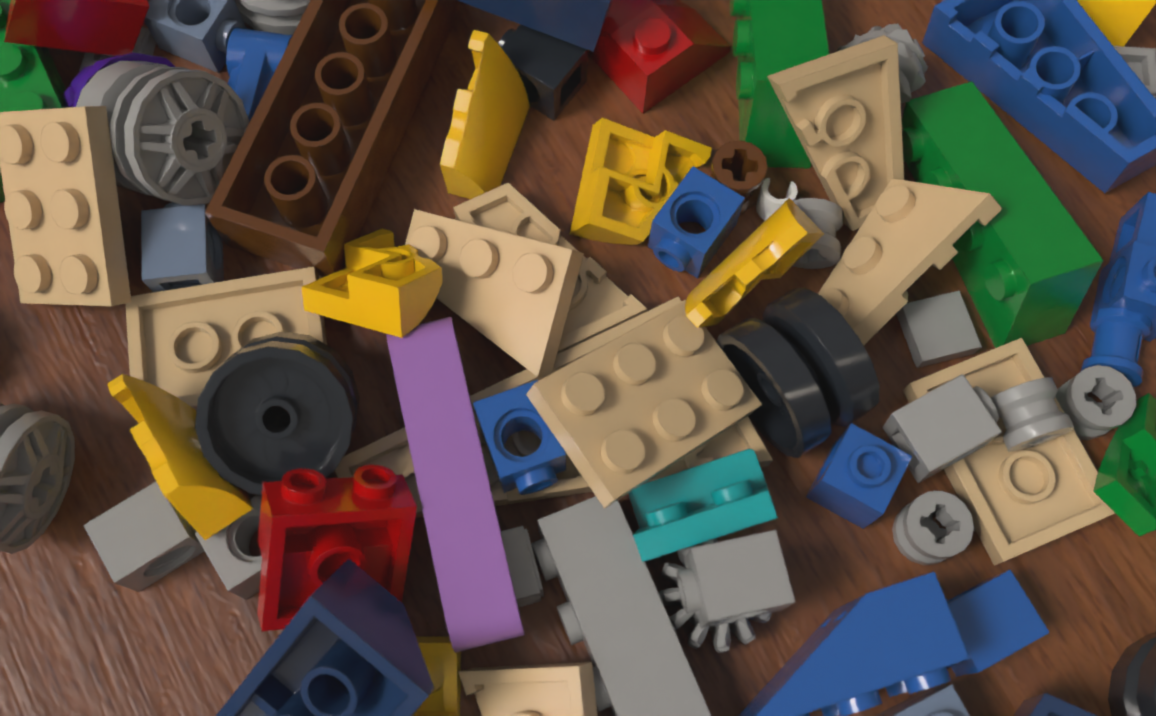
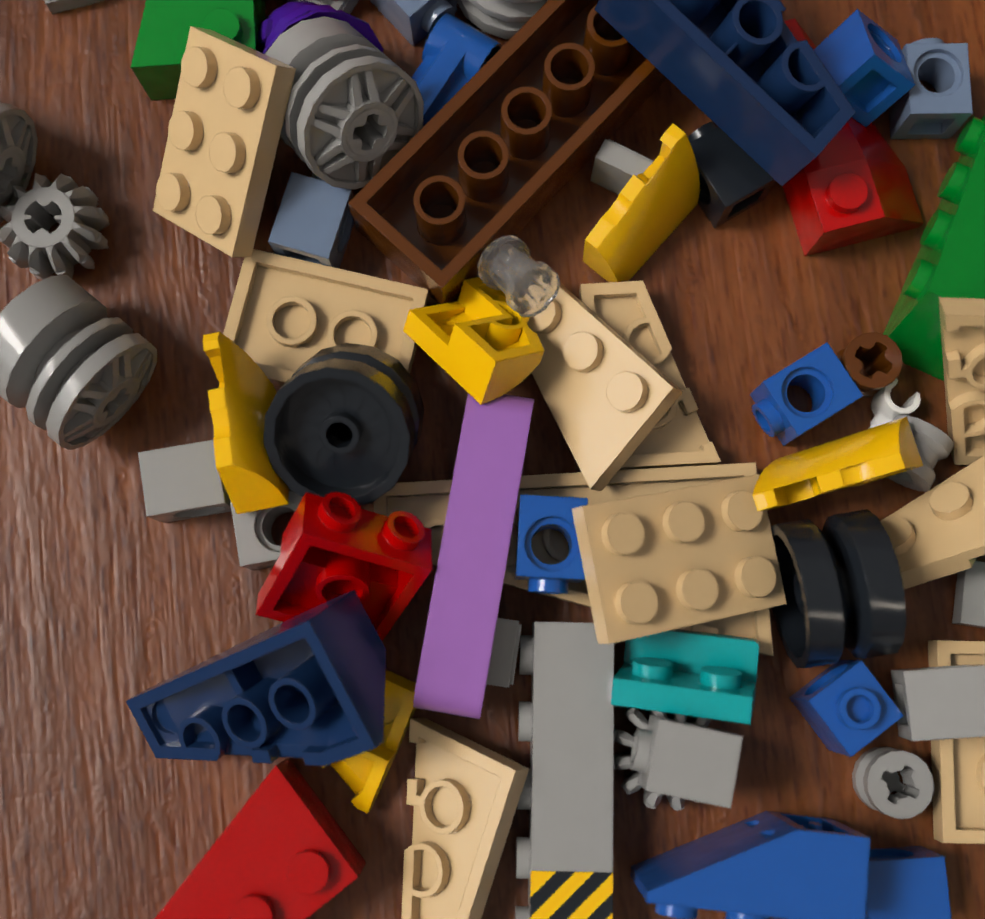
camera: 25 degrees right, 10 degrees up
(399, 226) = (526, 283): none -> clear bush
(439, 96) = (616, 165): none -> light grey tile
(629, 181) = (762, 324): yellow slope -> none

